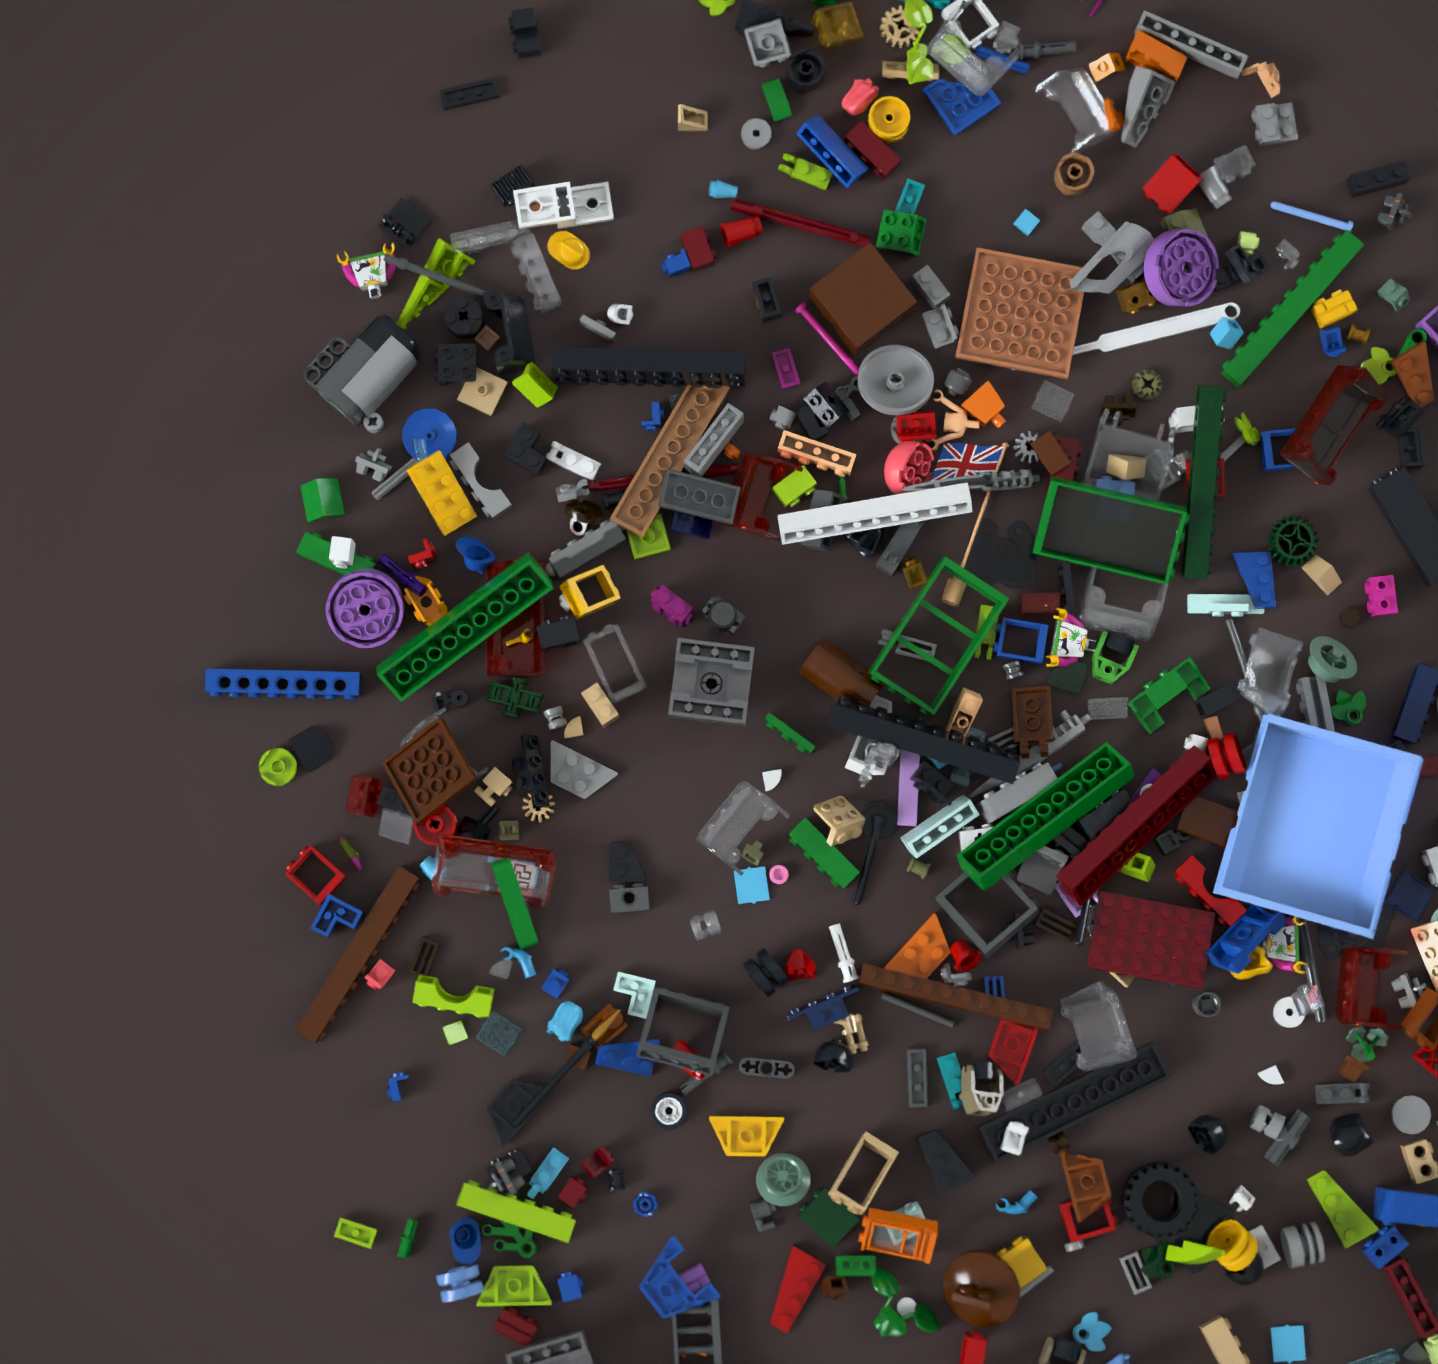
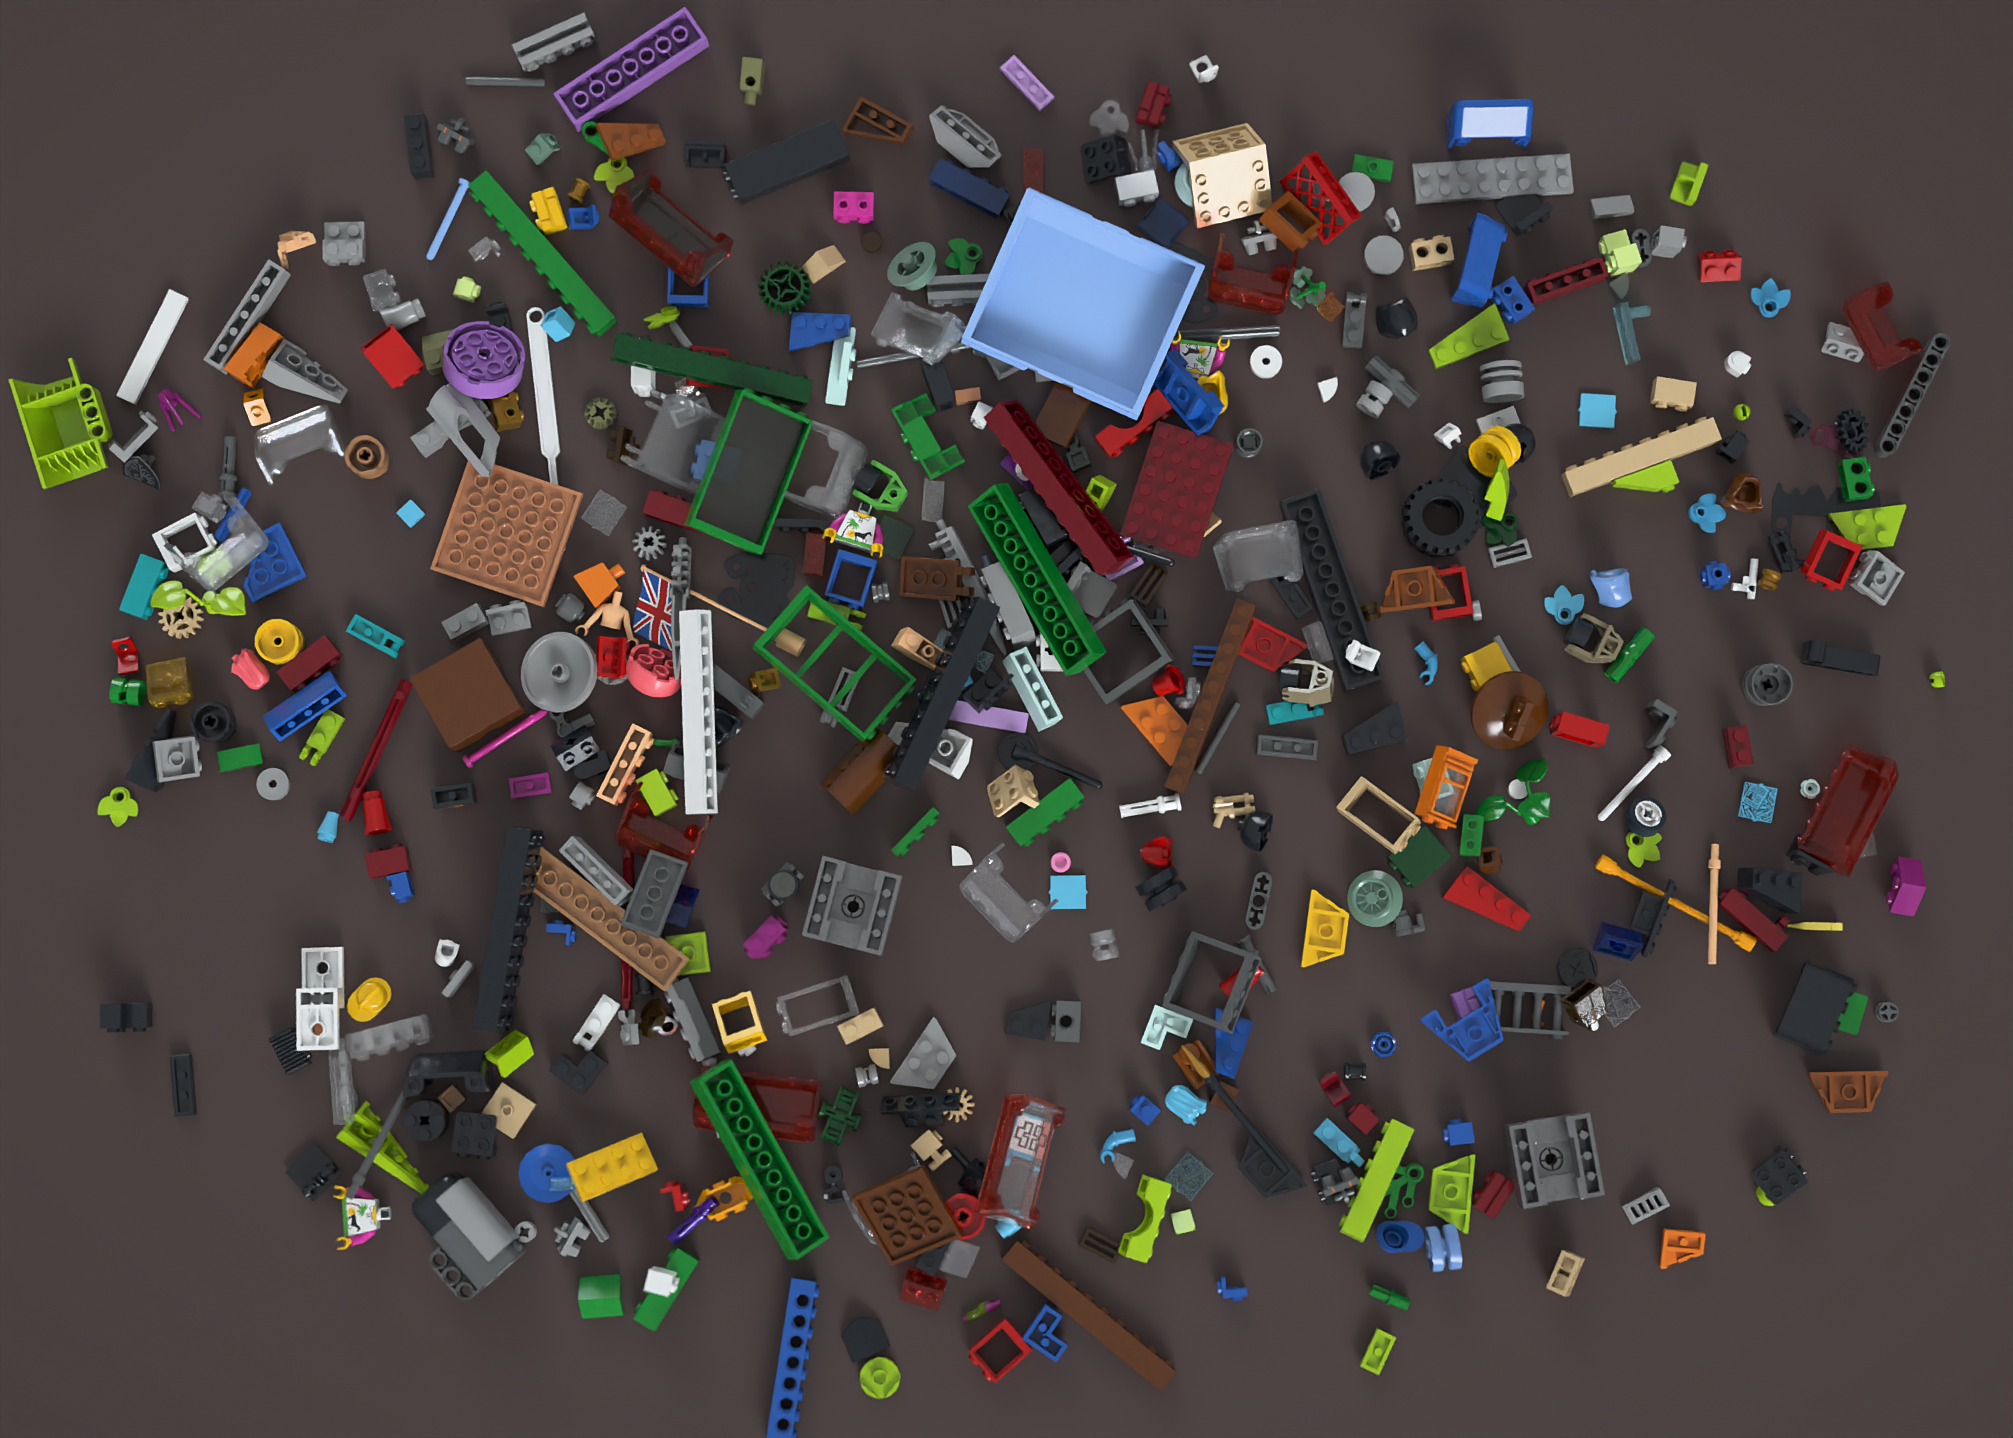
camera: 85 degrees left, 0 degrees up
(367, 588) = (703, 1261): medium lavender brick -> none
(379, 975) = (1113, 1294): coral bracket -> none
(475, 554) = (681, 1139): blue piece -> none
(494, 501) = (582, 1136): light grey arch -> none
(509, 830) = (978, 1139): olive tile -> none
(514, 903) = (1056, 1142): green beam -> none
(522, 638) = (778, 1100): yellow hand -> none
(558, 634) = (779, 1061): black brick -> none
(659, 1115) = (1295, 1017): wheel -> none
(692, 119) = (247, 850): tan slope -> none
(731, 451) = (610, 854): orange plate -> none
(753, 853) = (1035, 886): olive tile -> none
(826, 1011) = (1208, 832): dark blue bracket -> none
(882, 754) = (951, 738): clear bracket -> none
(899, 70) = (227, 623): tan plate -> none
(901, 232) = (402, 645): green bracket -> none
(918, 867) = (1071, 717): olive bush -> none
(1050, 452) = (659, 521): reddish brown brick -> none
(1114, 118) = (313, 407): orange tile -> none
(1126, 466) = (684, 446): tan slope -> none
(1227, 755) = (998, 386): red wheel -> none
(1246, 268) = (493, 293): black plate -> none
(1307, 999) = (1256, 341): clear brick -> none
(1400, 418) = (672, 160): black plate -> none

